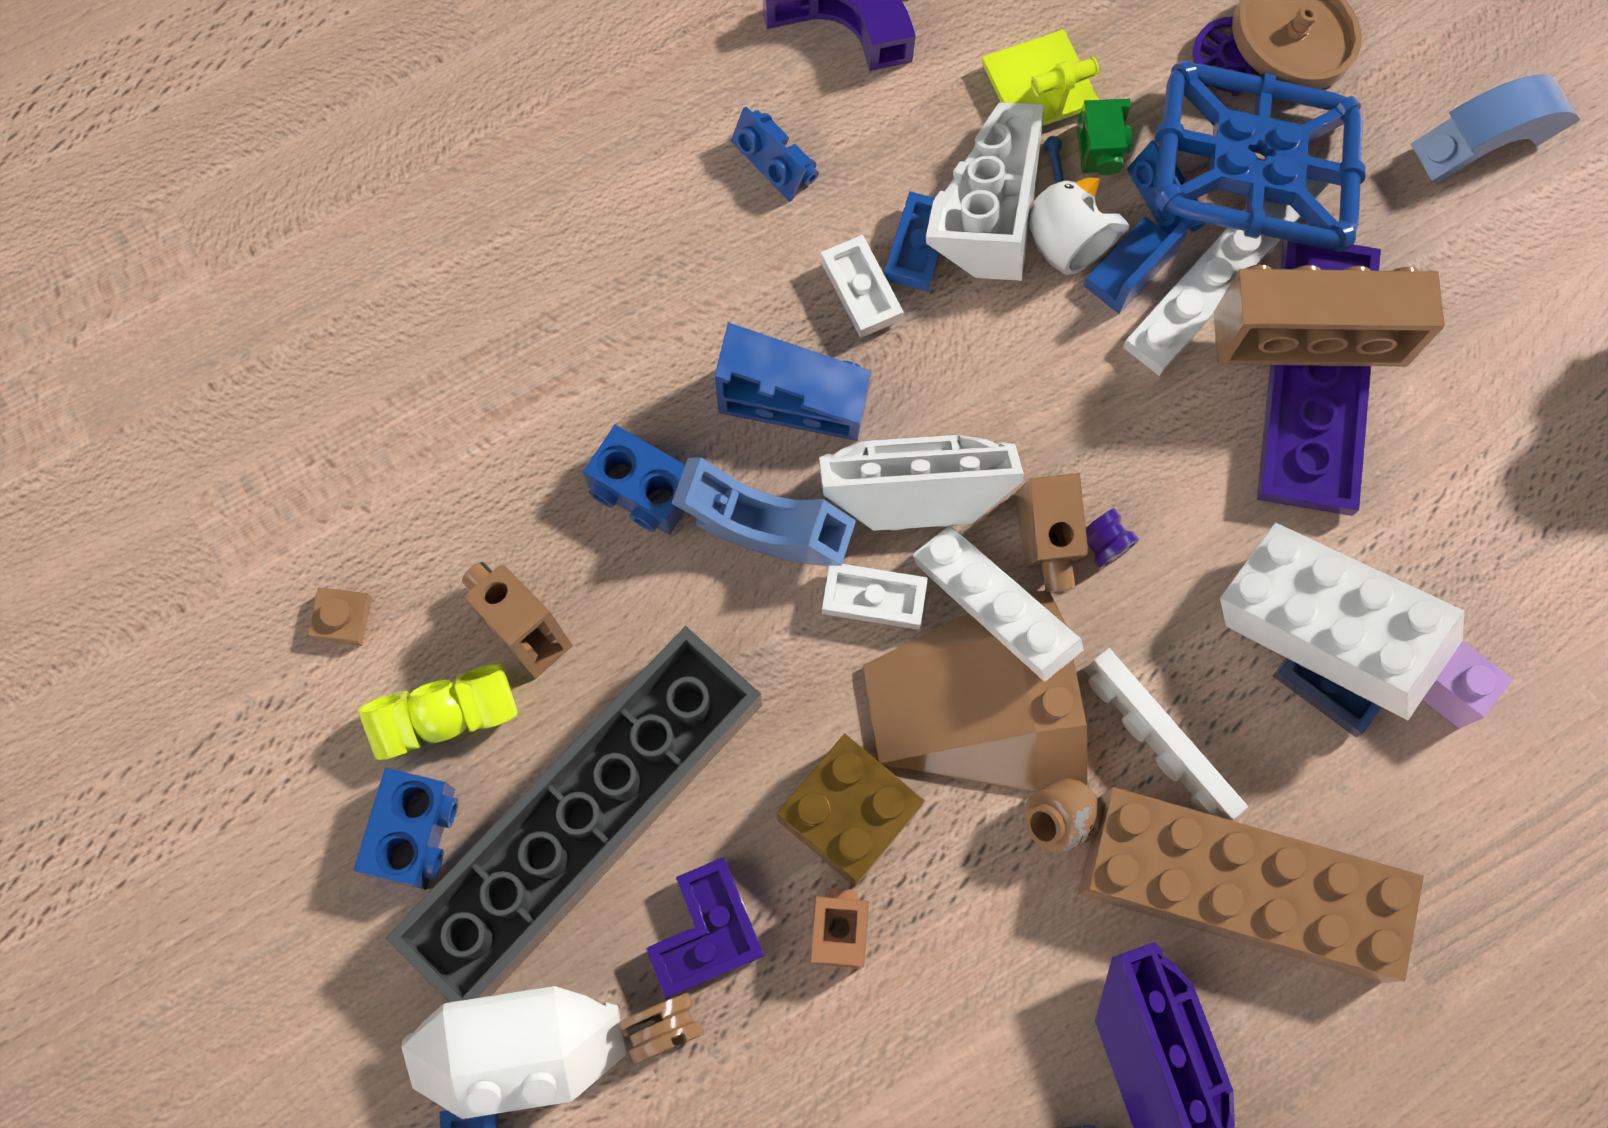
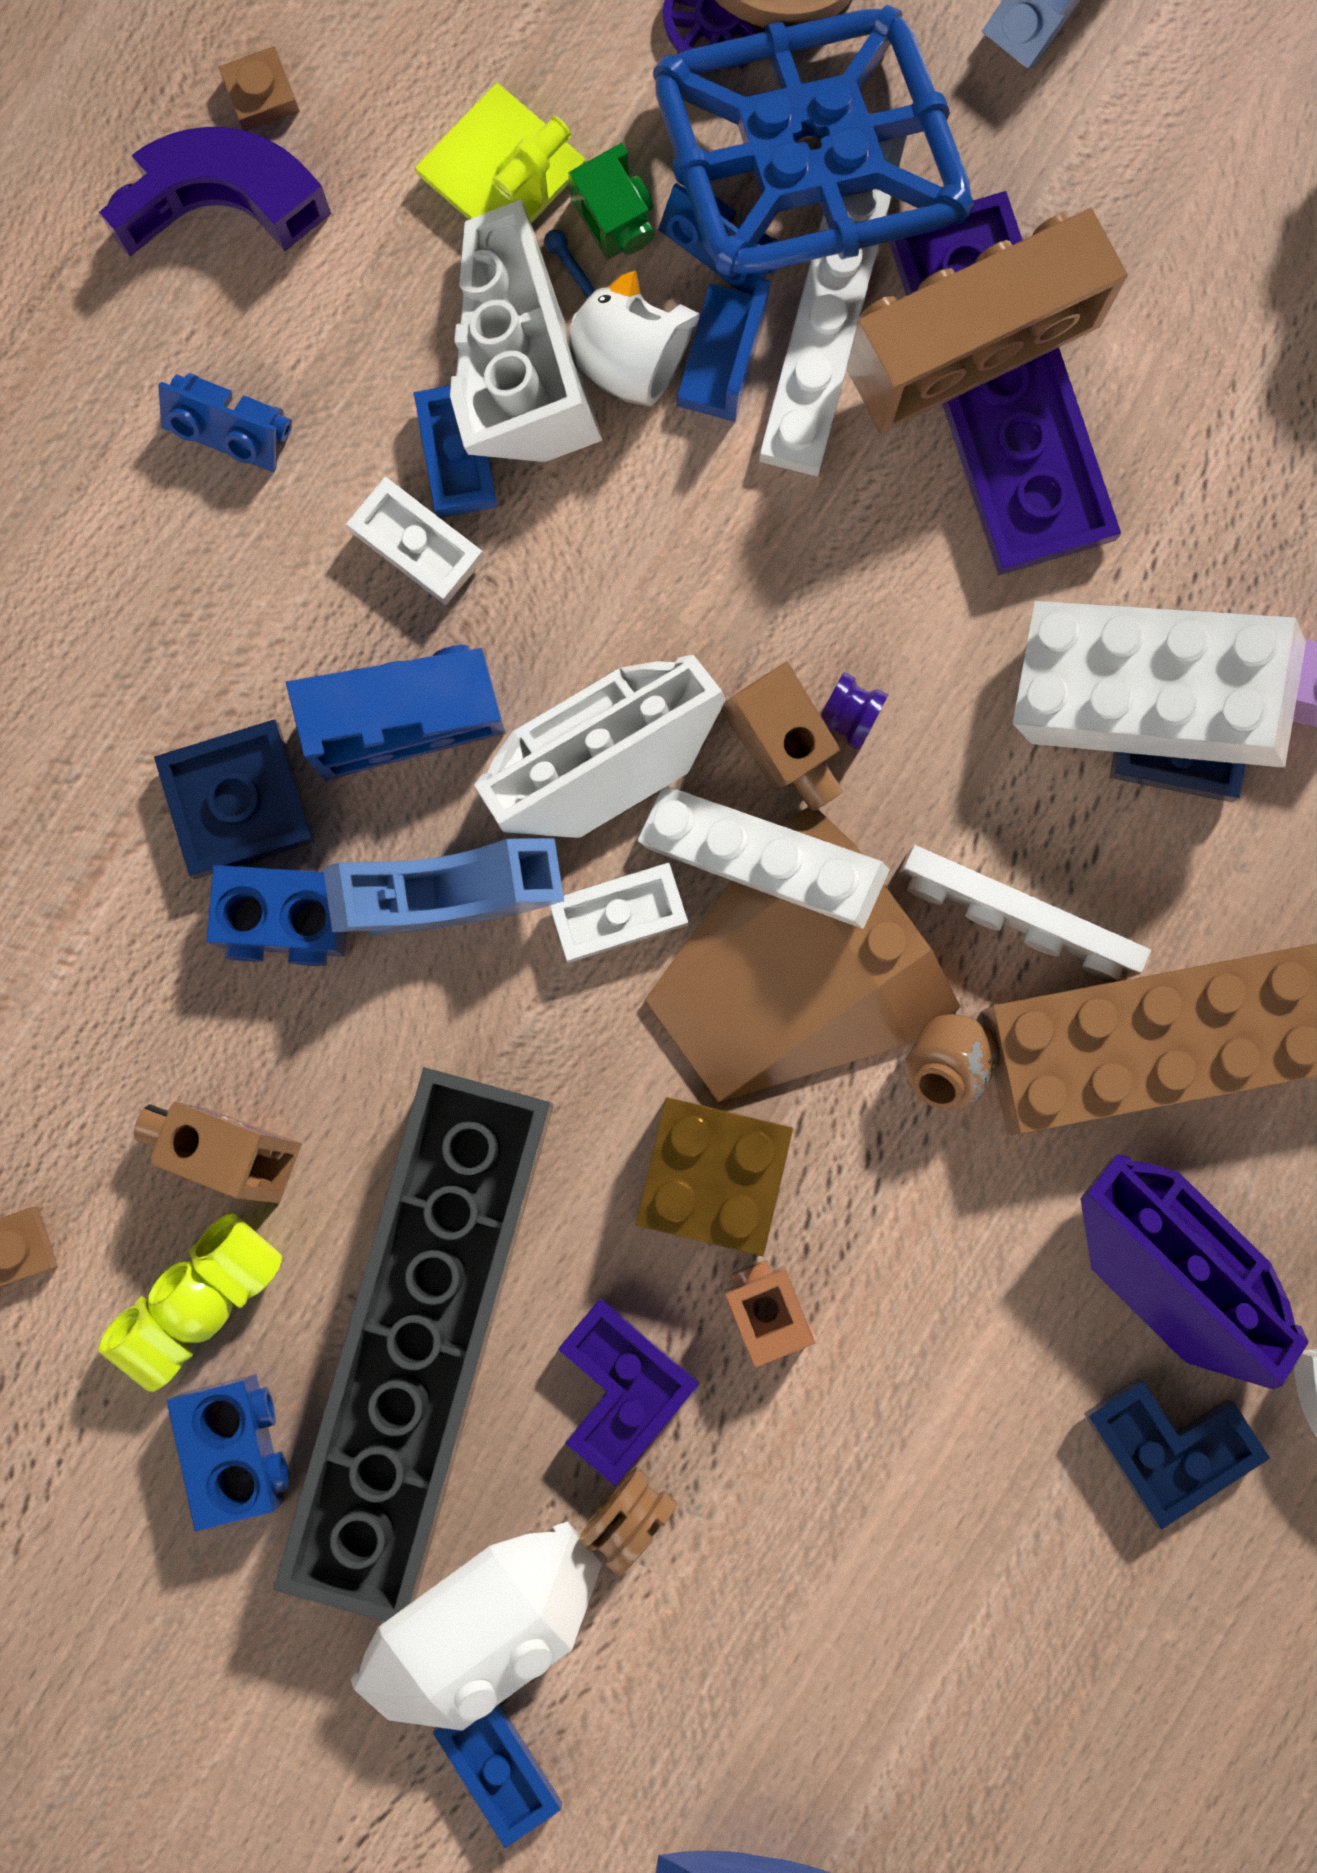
camera: 25 degrees left, 10 degrees up
(651, 392) = (234, 799): none -> dark blue plate

